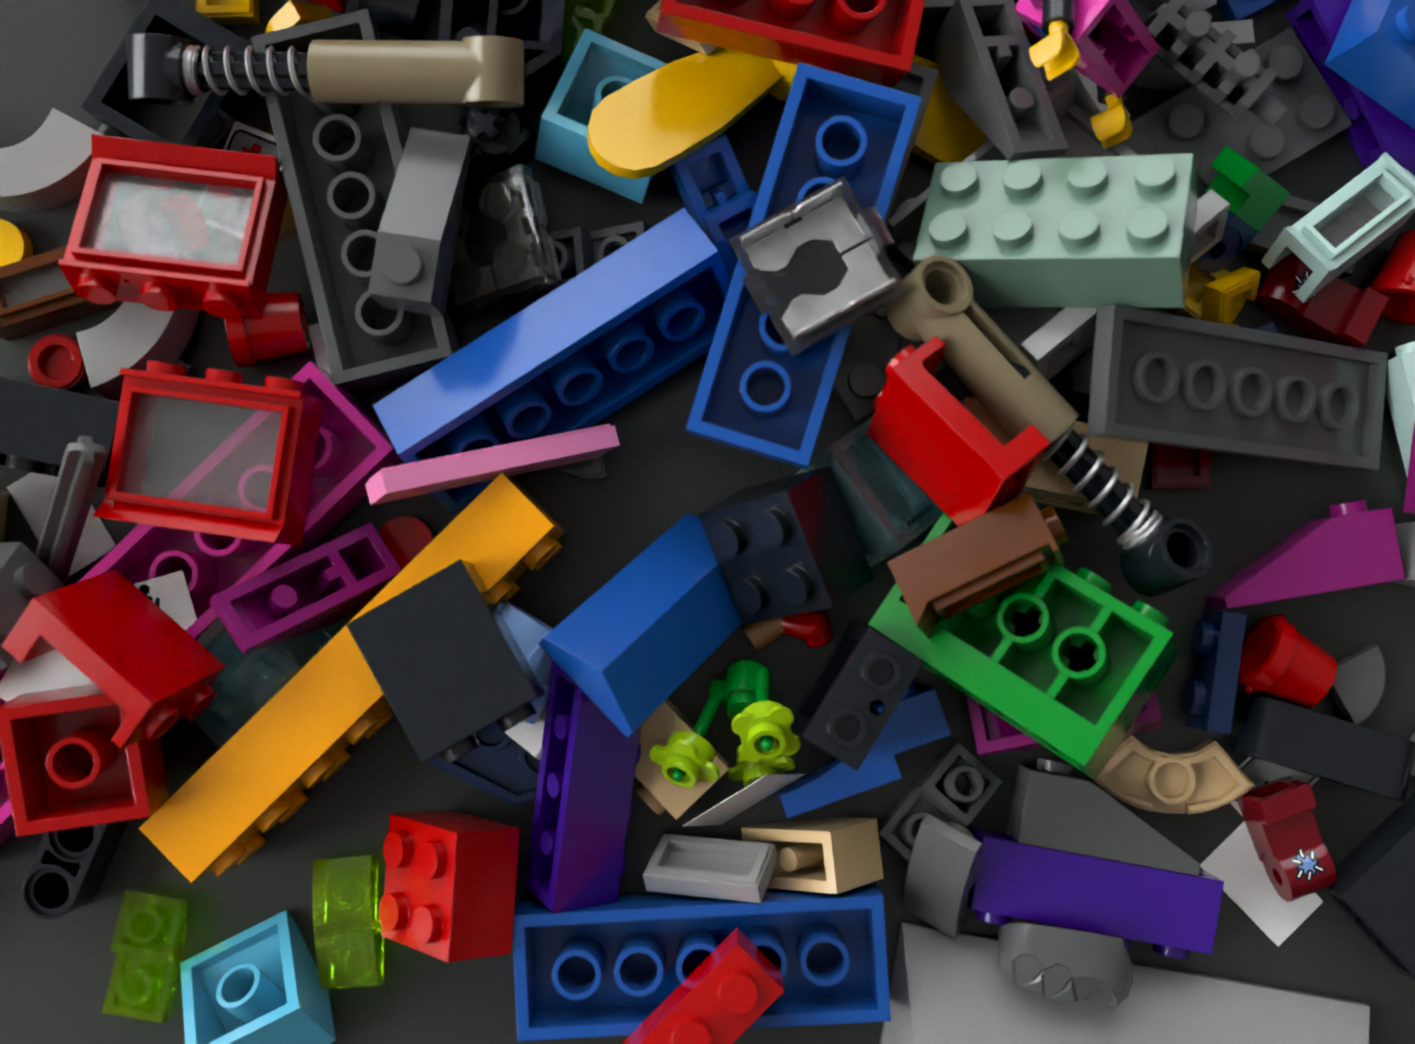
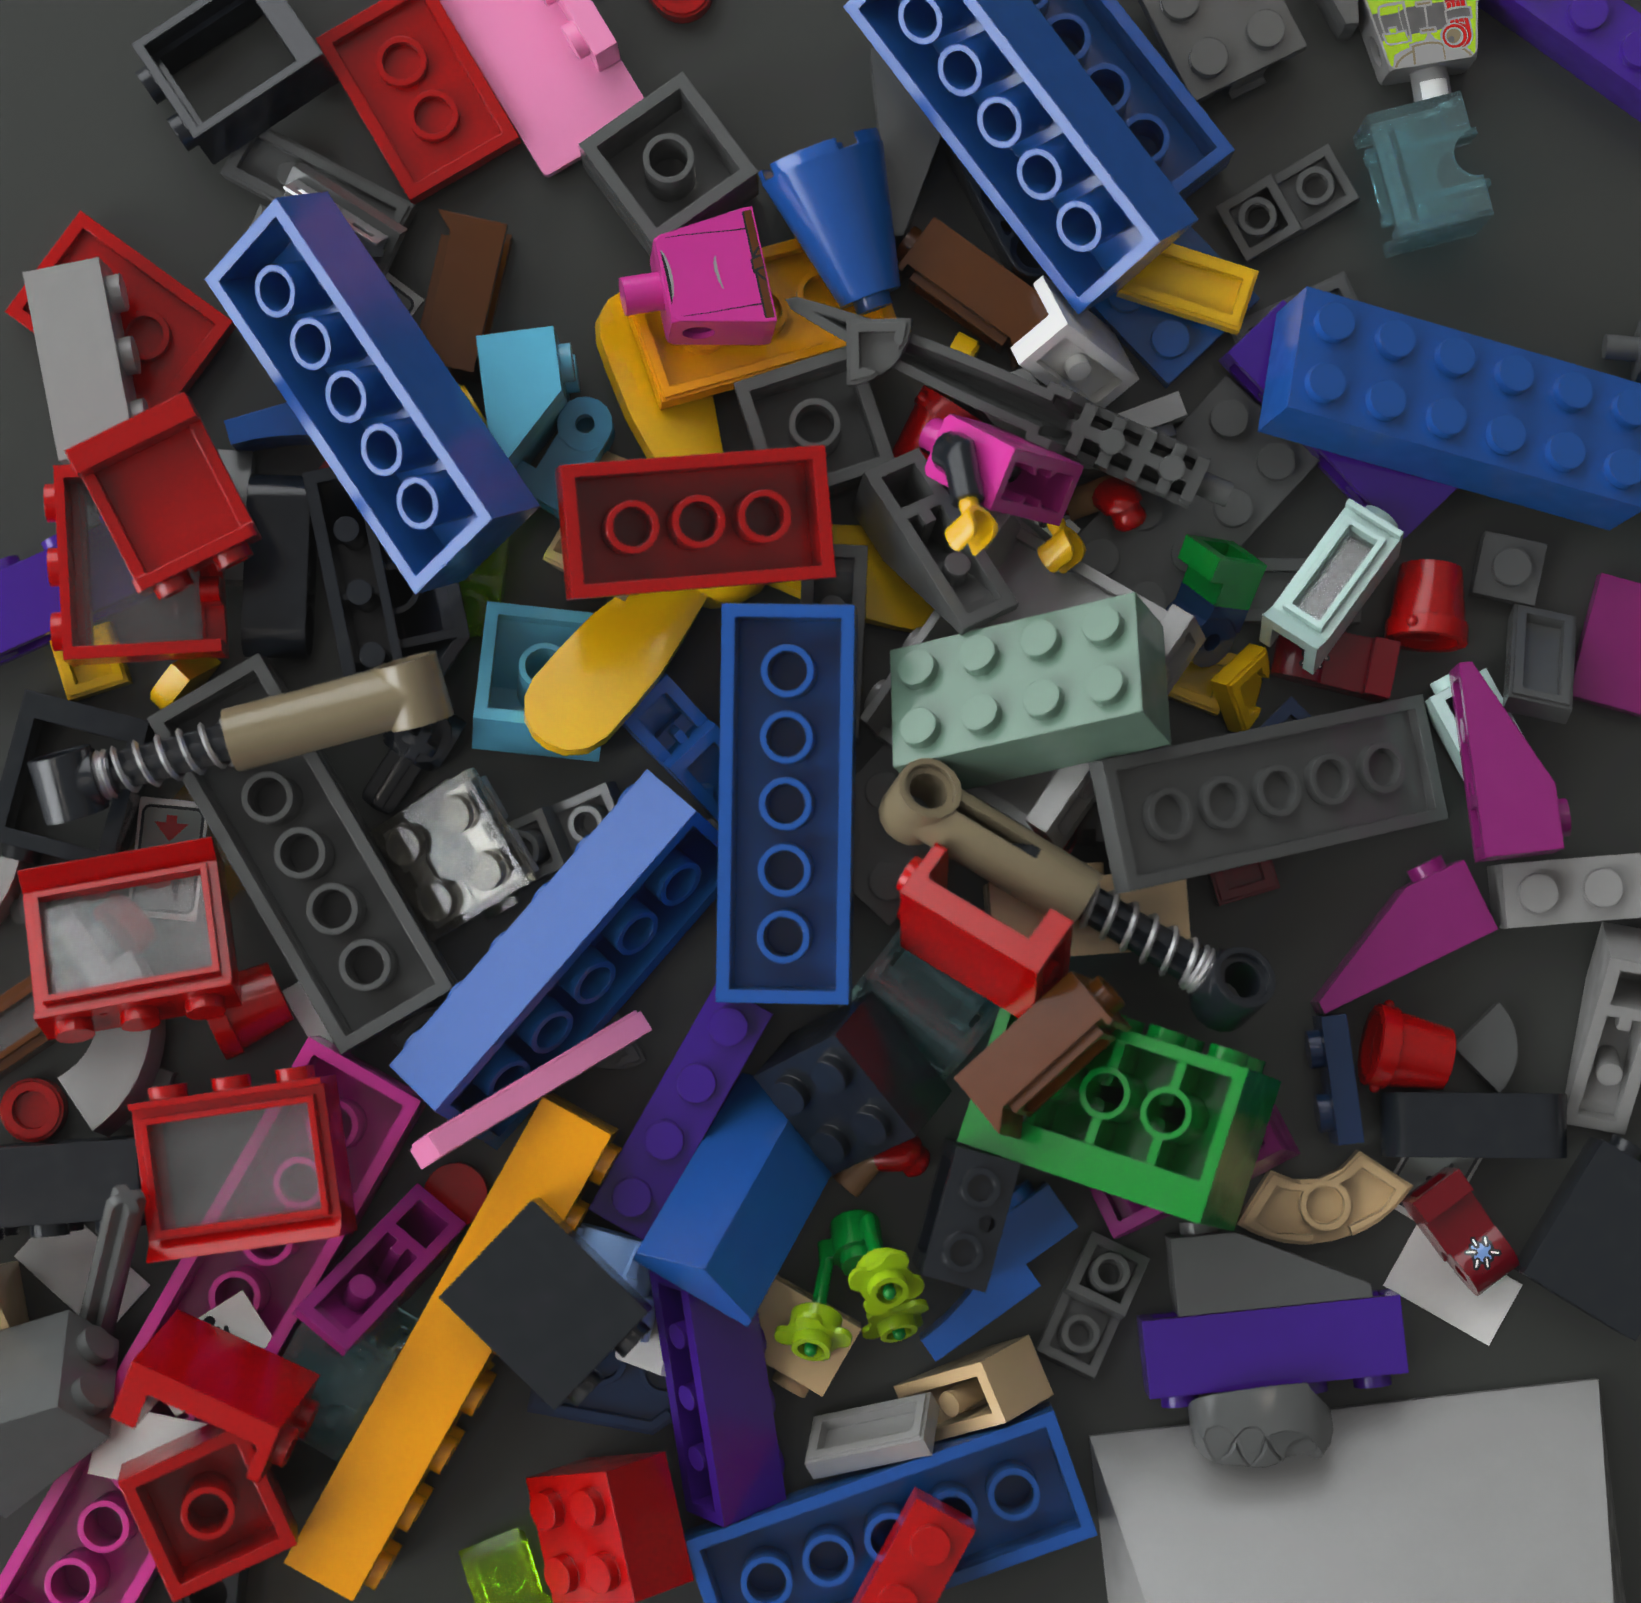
camera: 15 degrees left, 0 degrees up
(421, 223) = (385, 861): dark grey slope -> none
(625, 525) = (679, 1113): none -> dark purple brick
(743, 799) = (885, 1356): white sticker -> none
(818, 265) = (799, 807): piece -> none
(941, 874) = (1109, 1373): dark grey slope -> none
(1164, 97) = (1110, 497): none -> red arm

